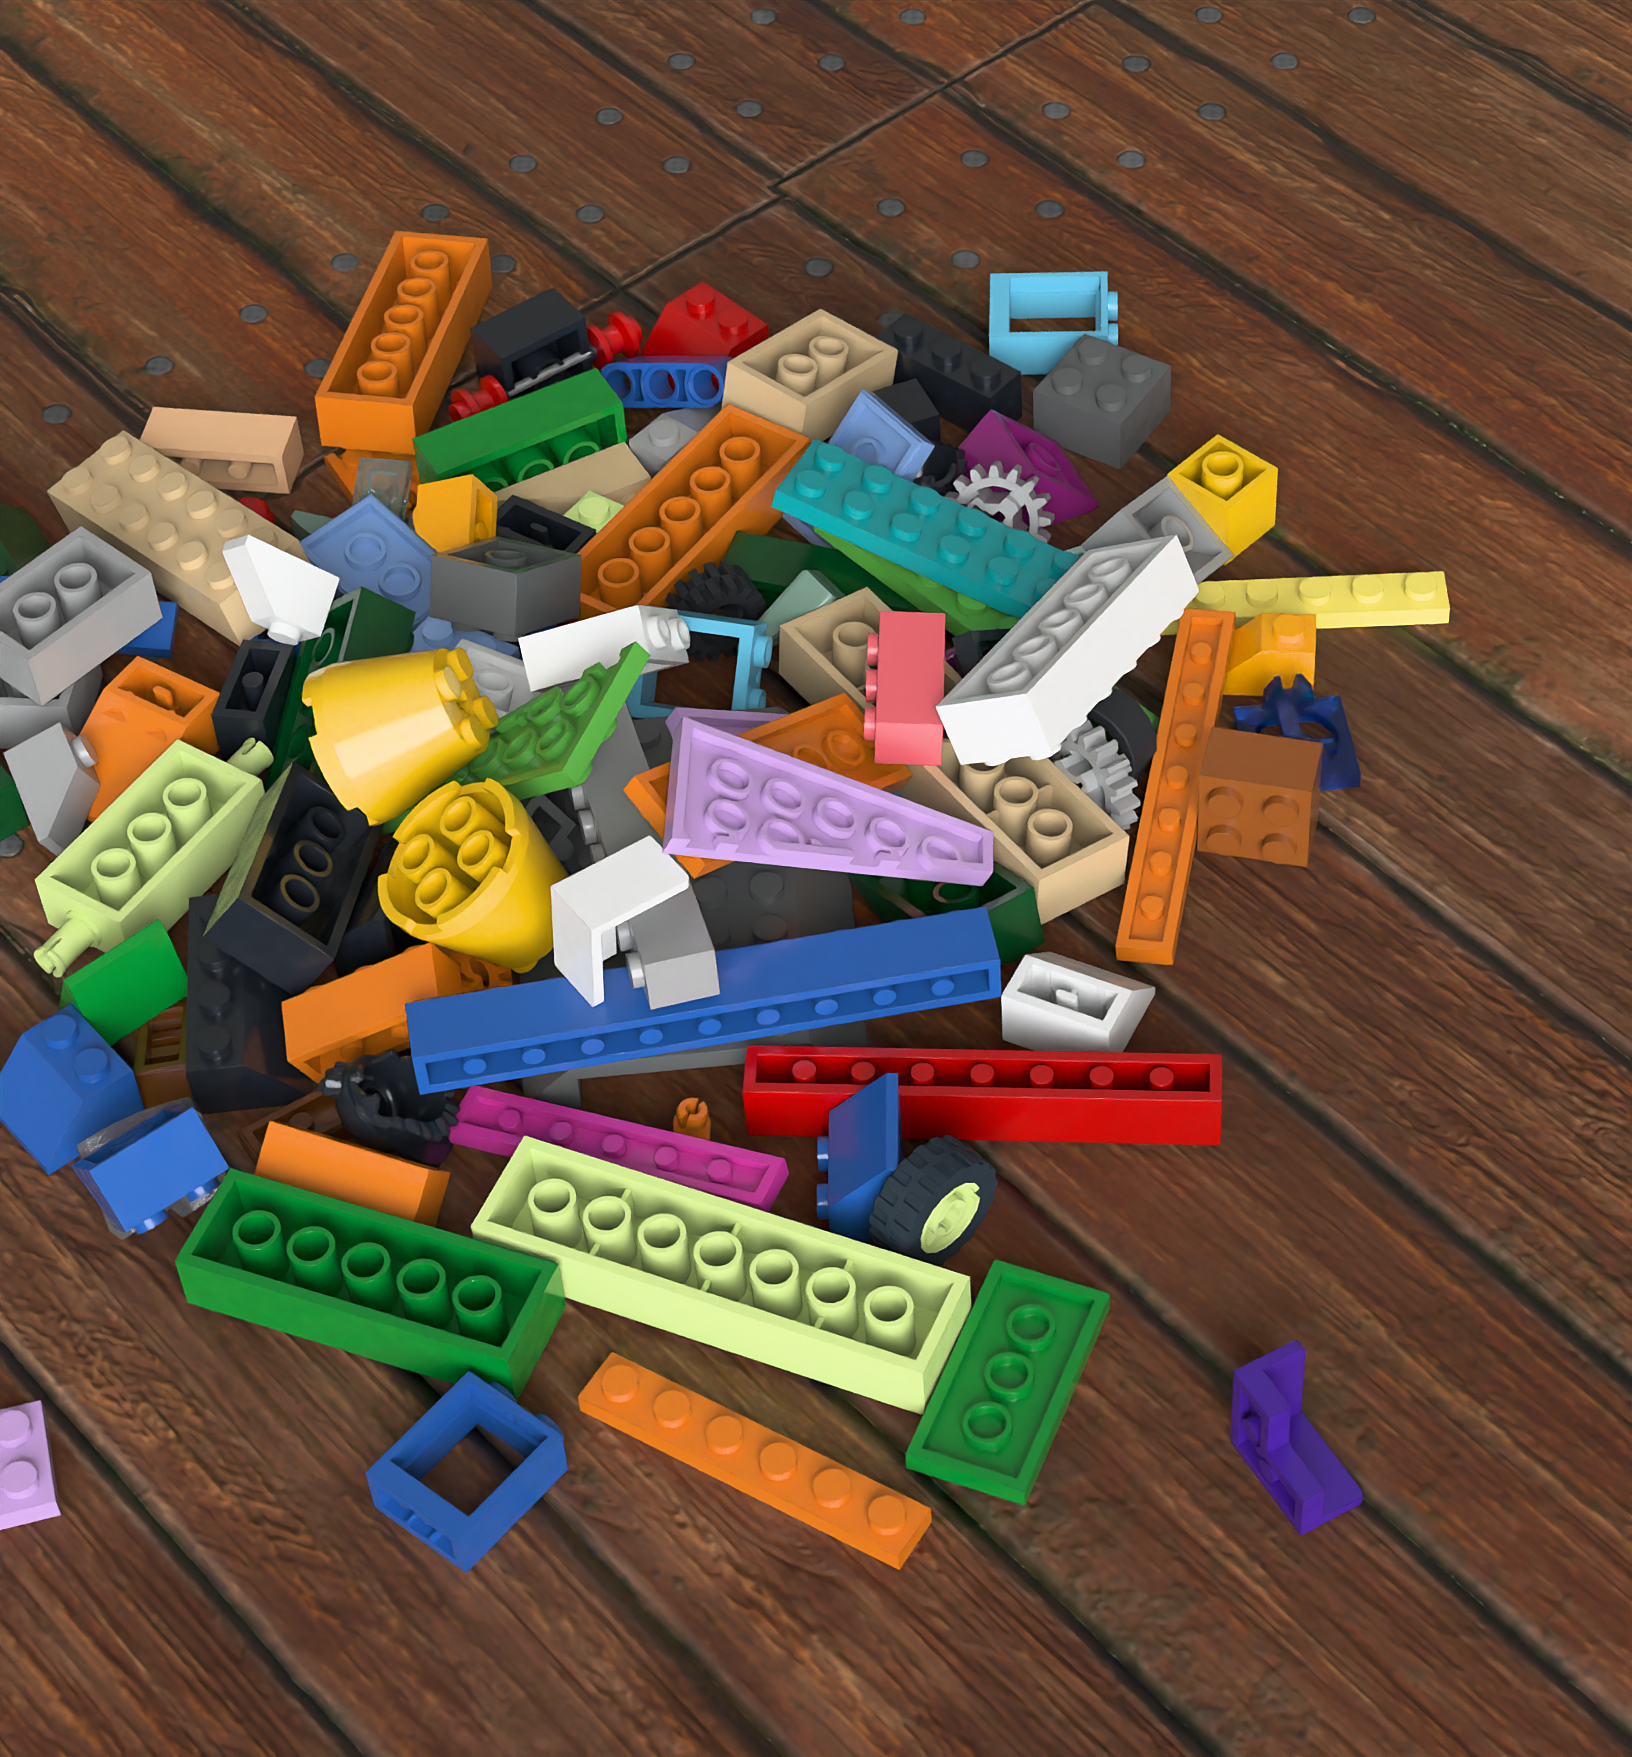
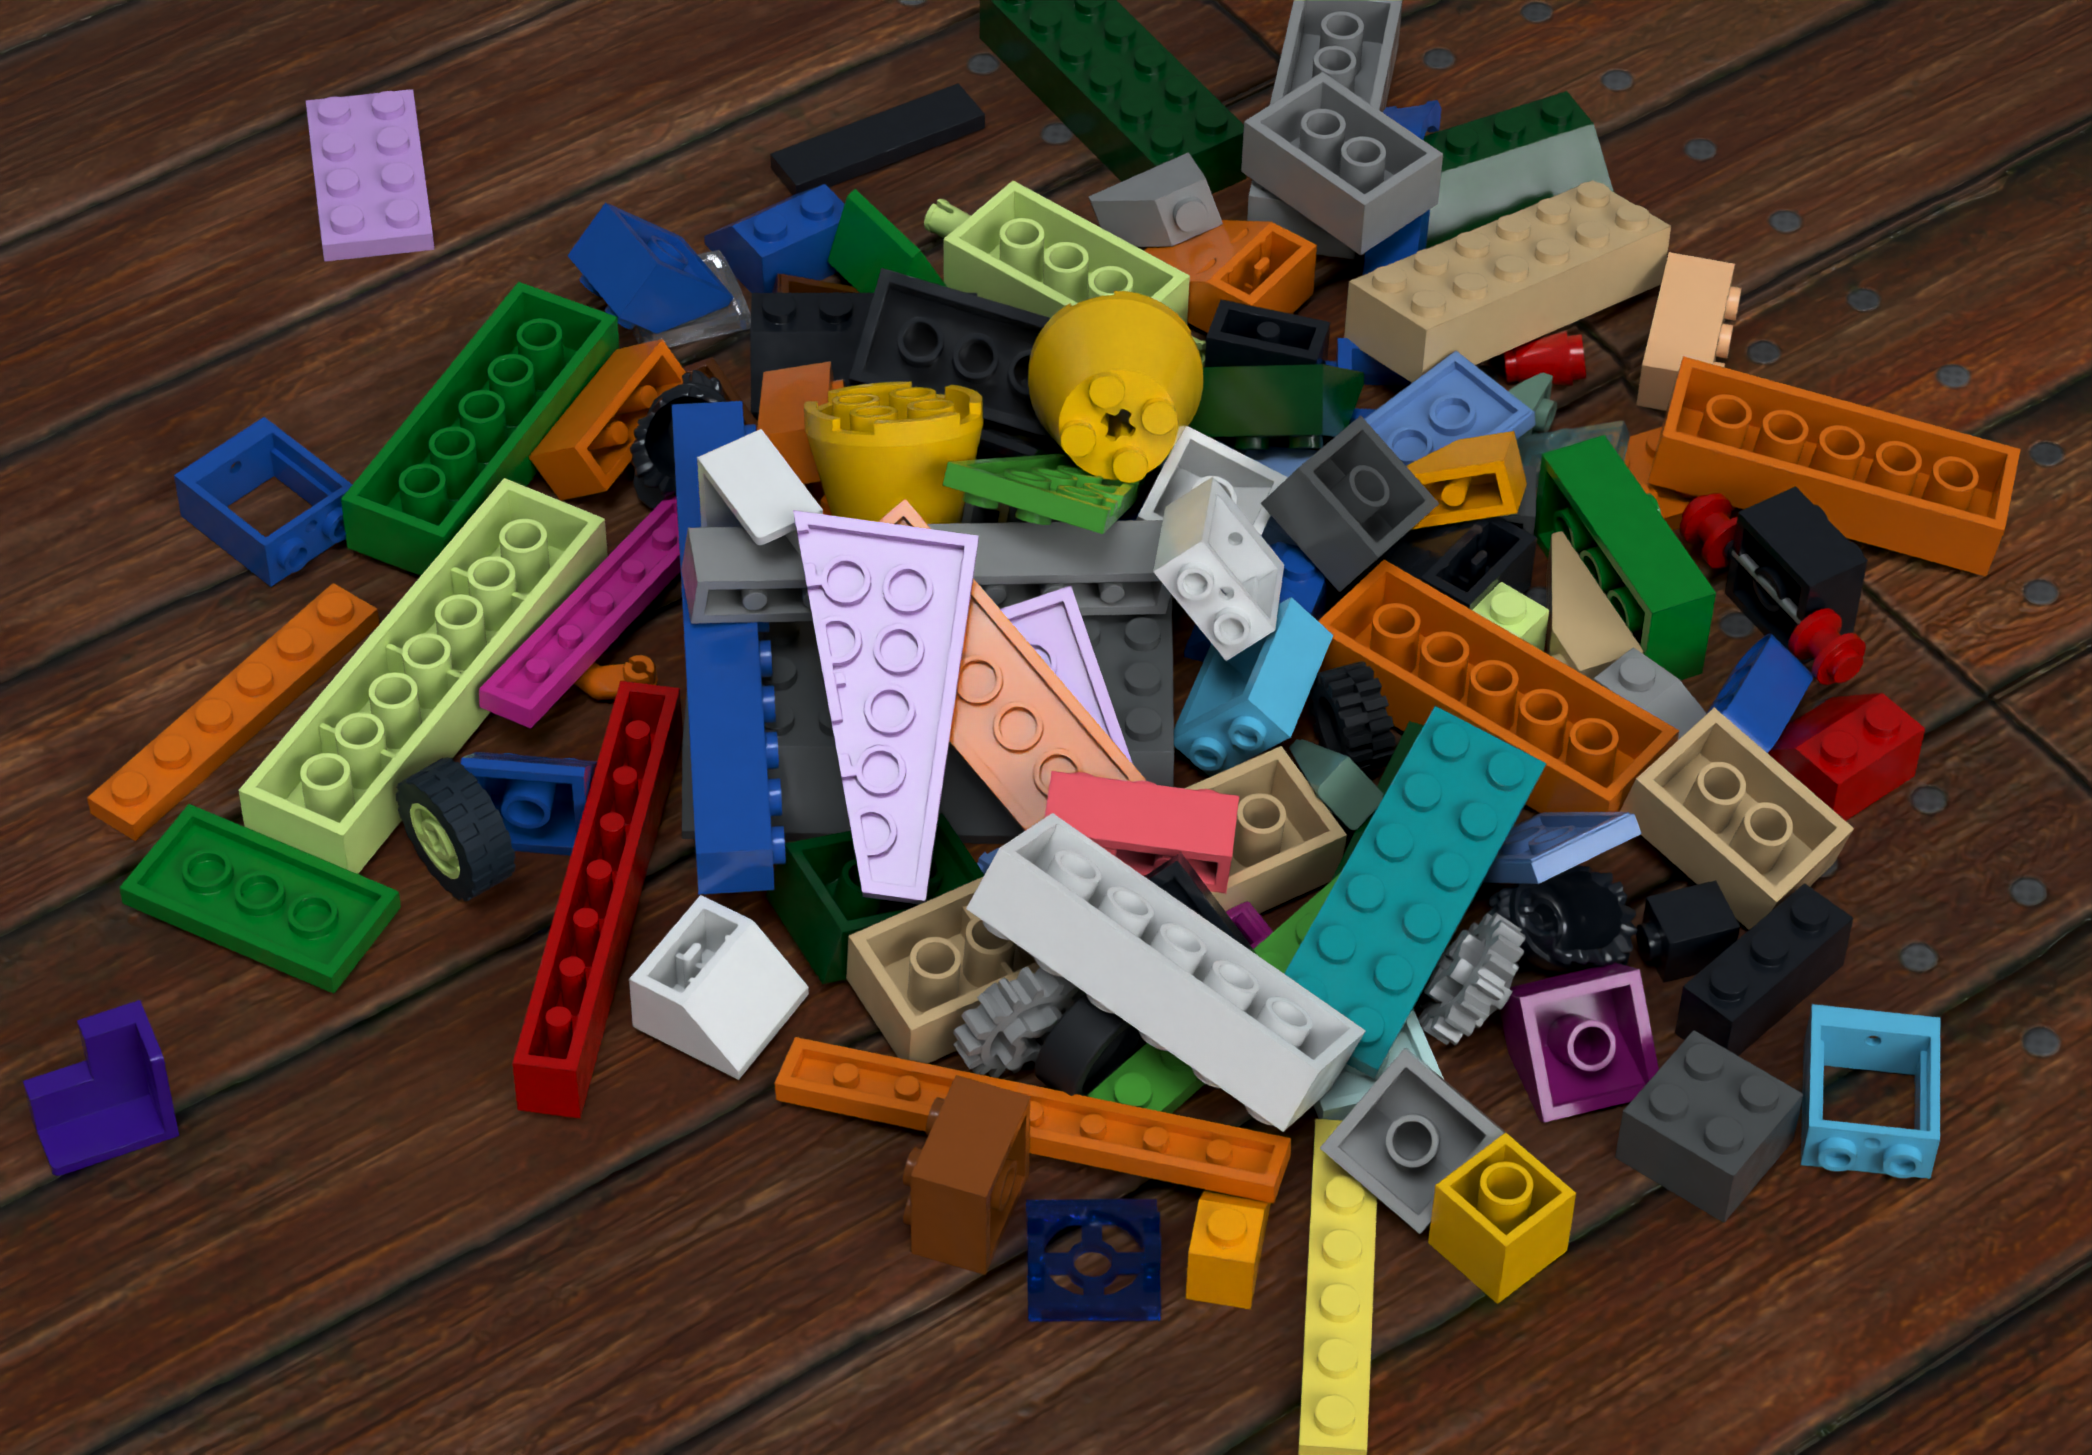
camera: 90 degrees right, 0 degrees up
(280, 589) = (1358, 317): white slope -> none

